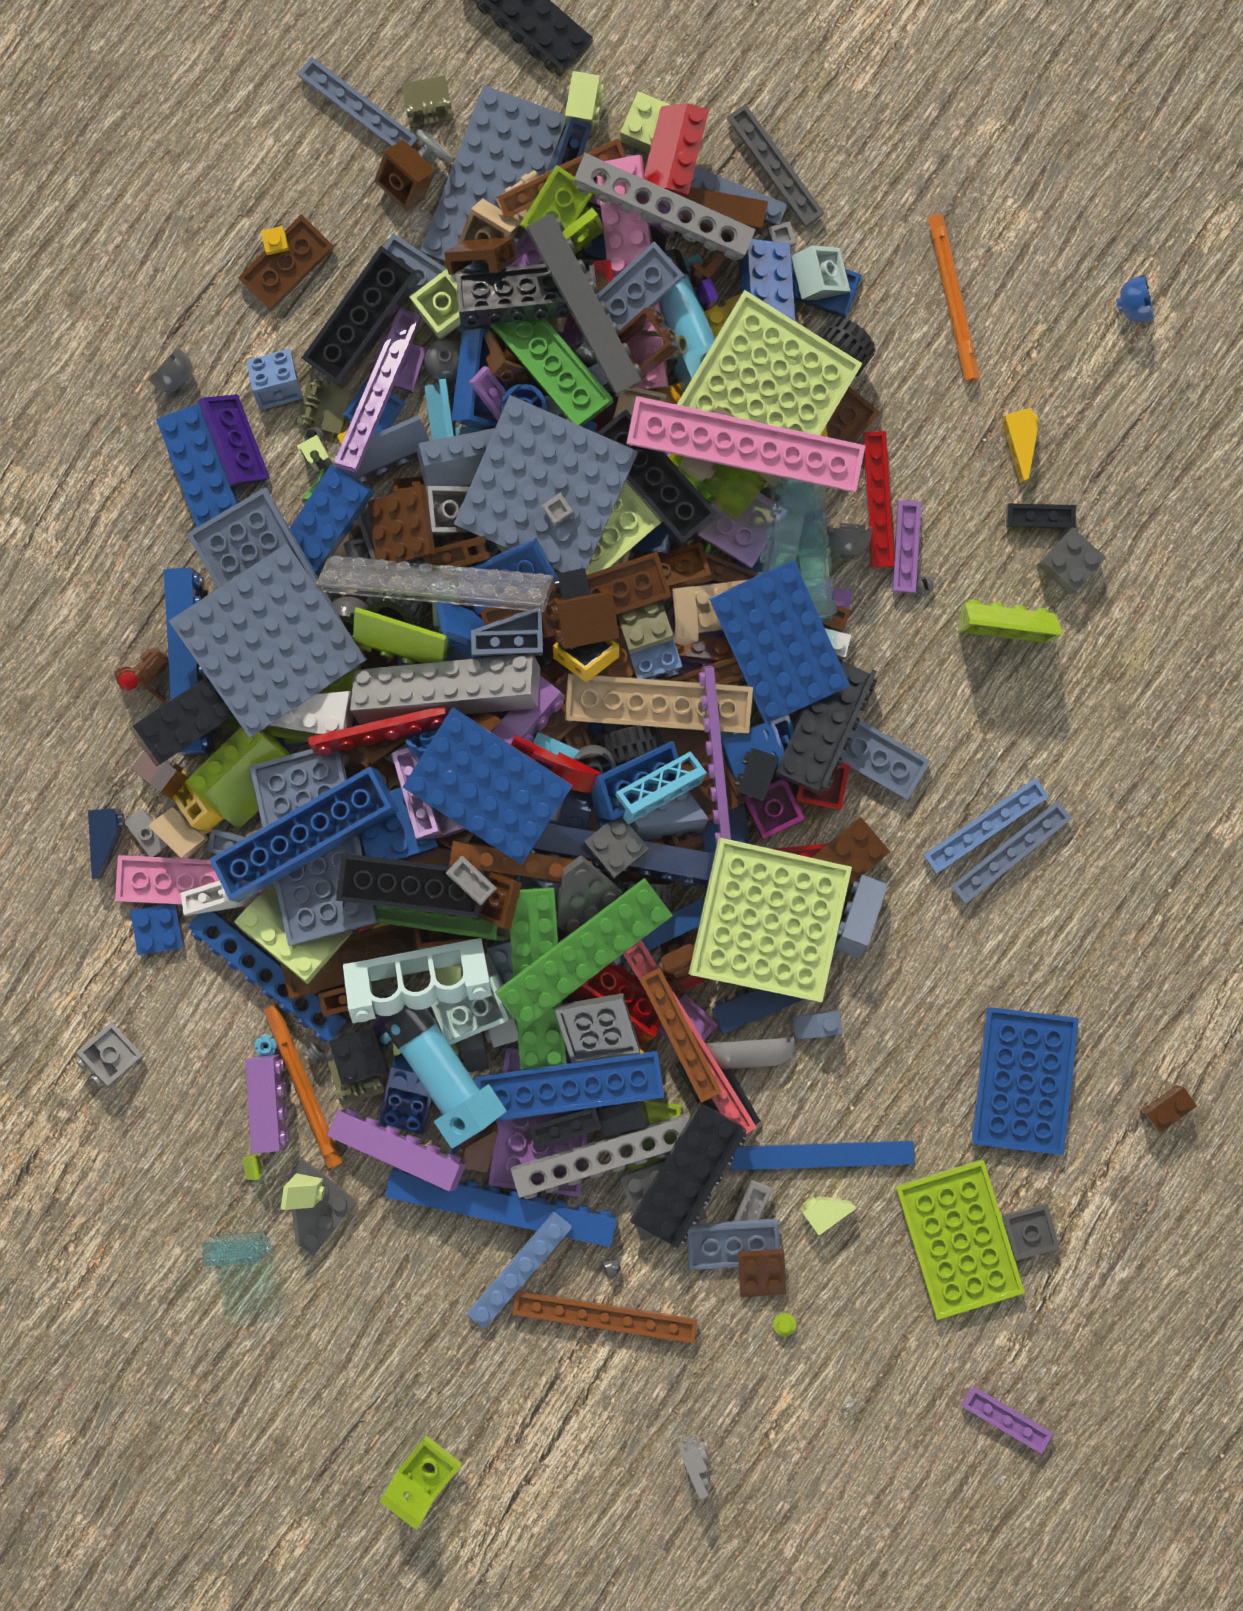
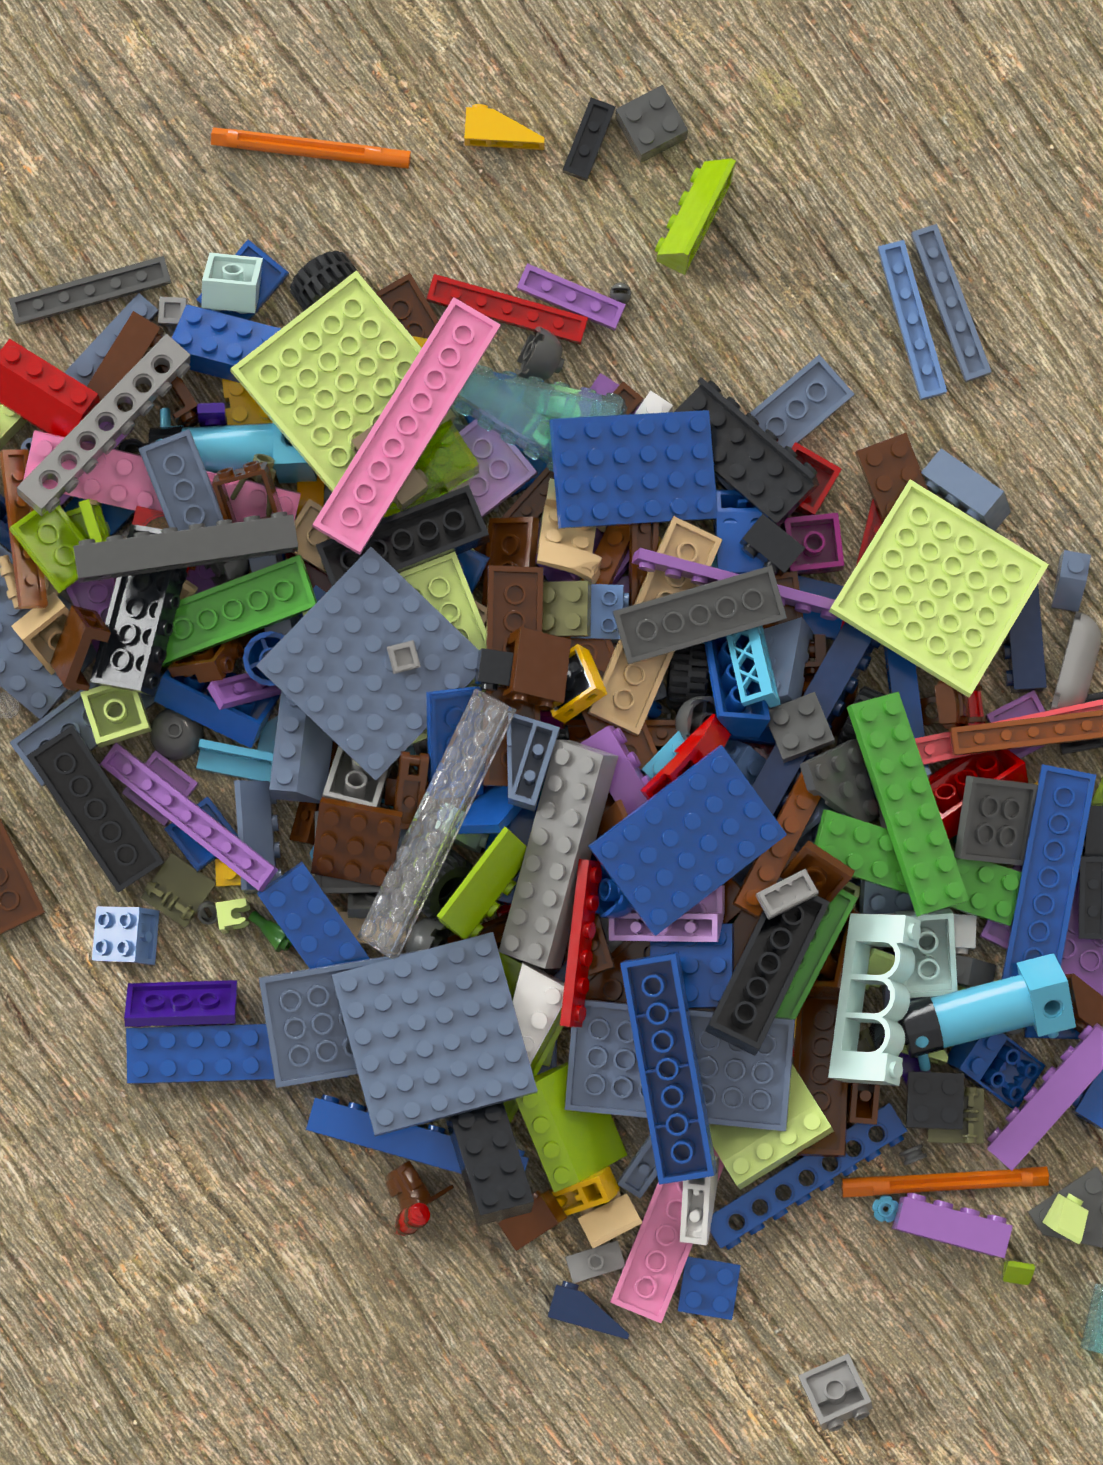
camera: 70 degrees left, 5 degrees down
(173, 372) = (77, 1047): dark grey cylinder -> none
(677, 734) = (699, 614): none -> dark grey plate

